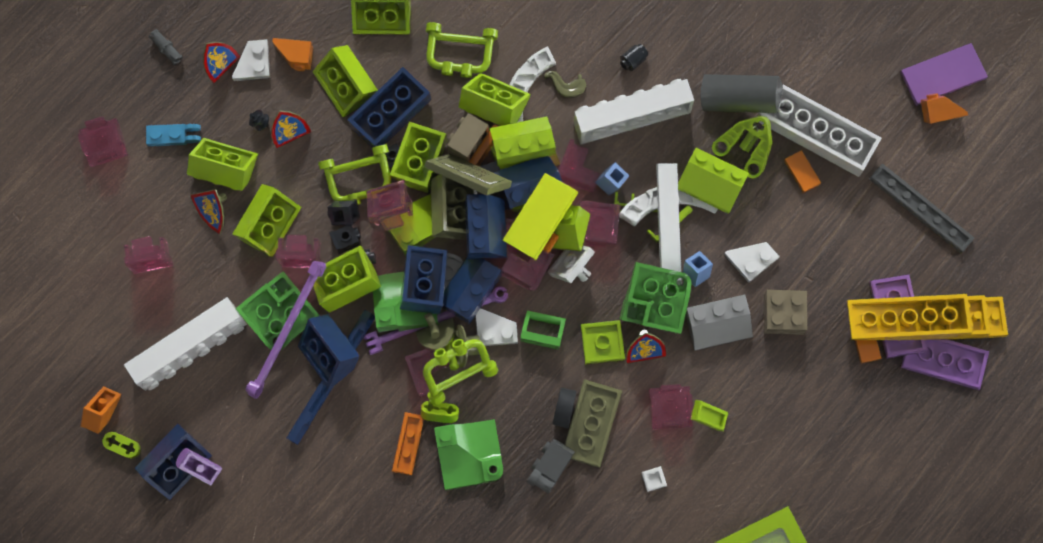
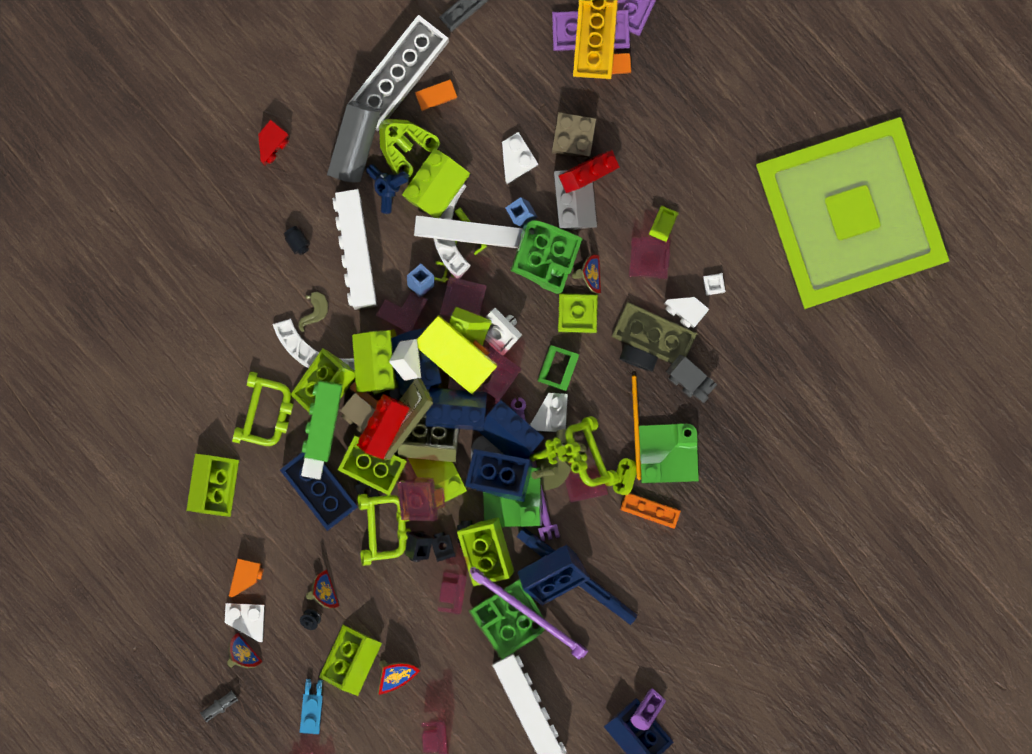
camera: 90 degrees left, 10 degrees up
(266, 220) = (414, 622): lime slope -> none
(344, 80) = (280, 529): lime slope -> none
(408, 96) = (312, 468): none -> white tile
(455, 97) = (323, 420): none -> bright green brick
(455, 329) = (552, 448): none -> lime piece
(457, 154) = (383, 426): none -> red brick
(494, 416) = (636, 427): none -> light orange axle
(527, 168) = (406, 360): none -> white slope
(624, 453) = (688, 309): none -> white slope
(701, 134) = (386, 185): none -> dark blue bush
(728, 19) = (270, 141): none -> red slope
(751, 329) = (589, 171): none -> red brick

